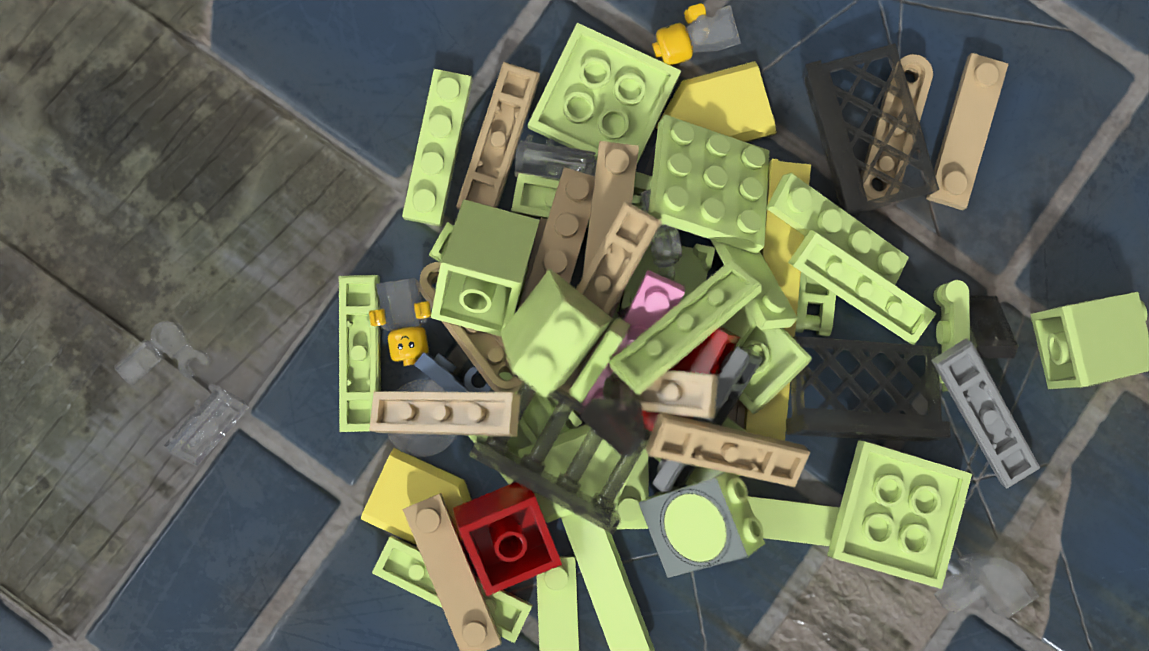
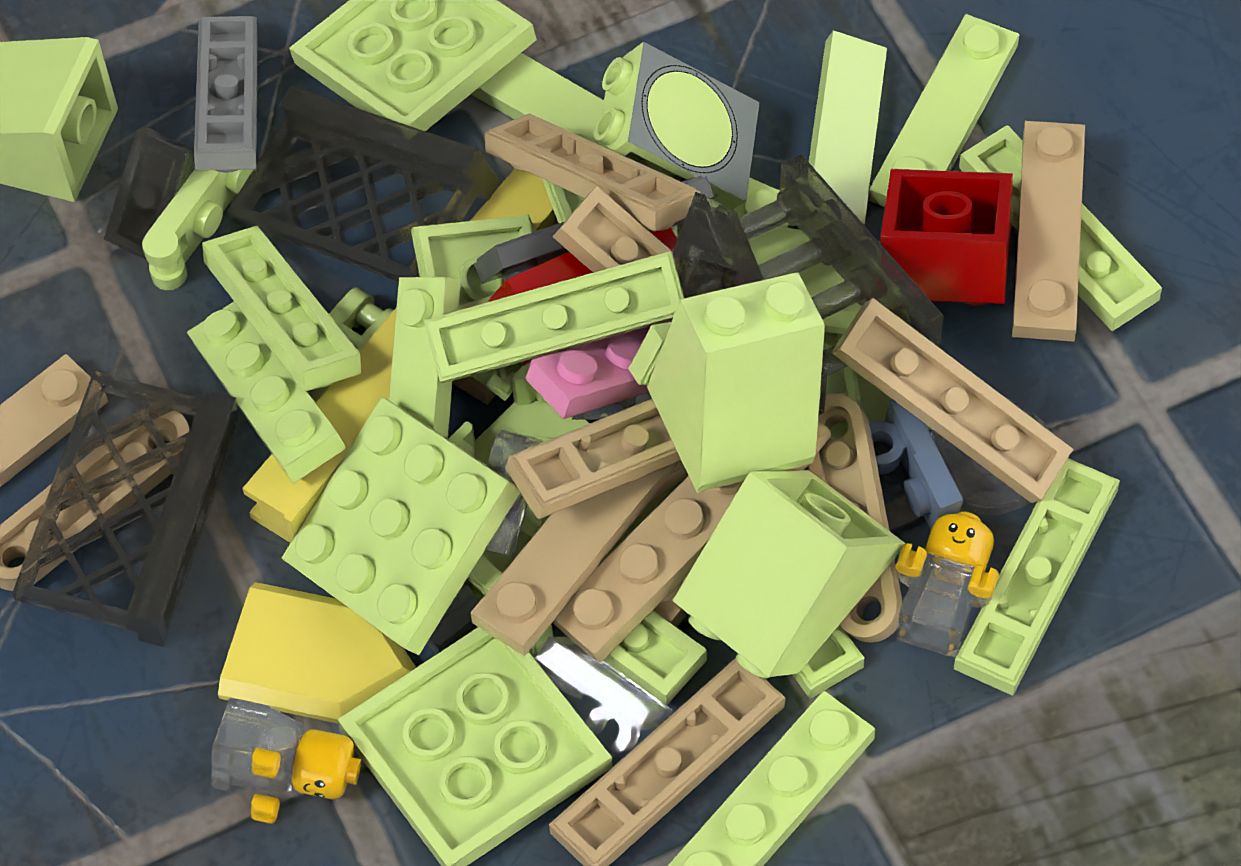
camera: 150 degrees left, 25 degrees down
(406, 482) = (1053, 377): light yellow tile -> none

